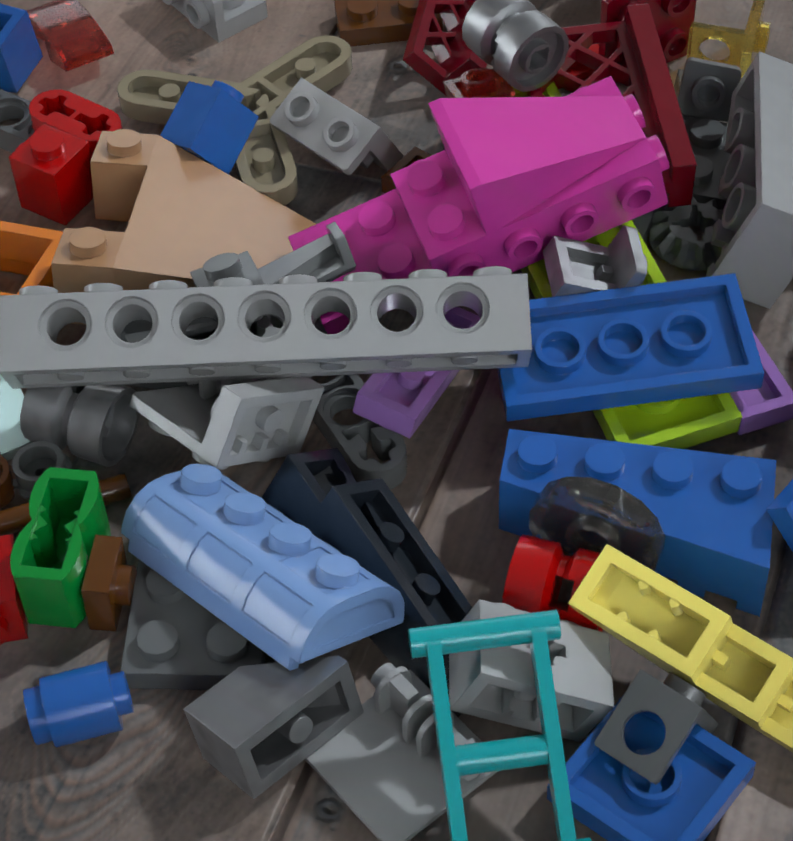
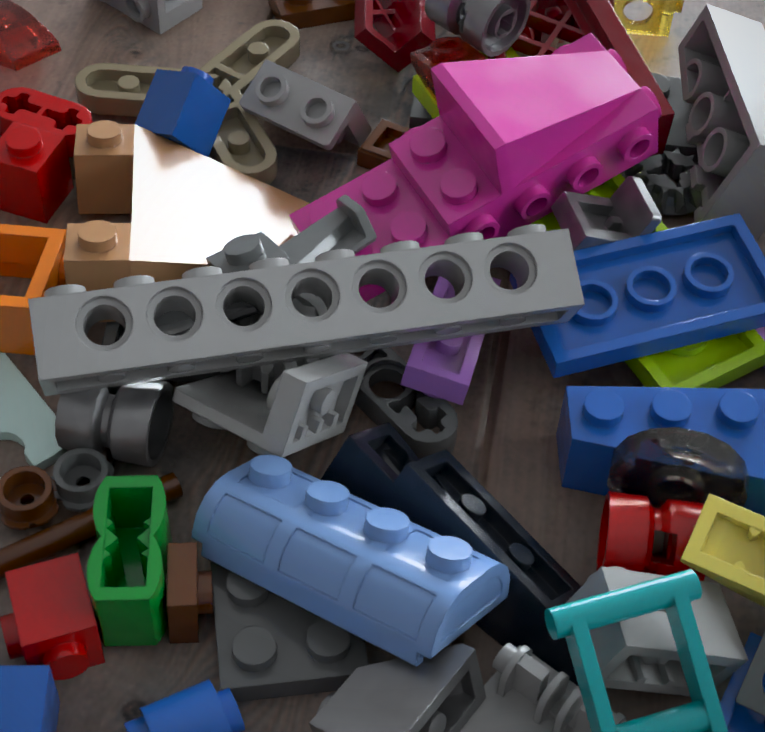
camera: 15 degrees left, 0 degrees up
(706, 88) = (655, 41): dark grey bracket -> none

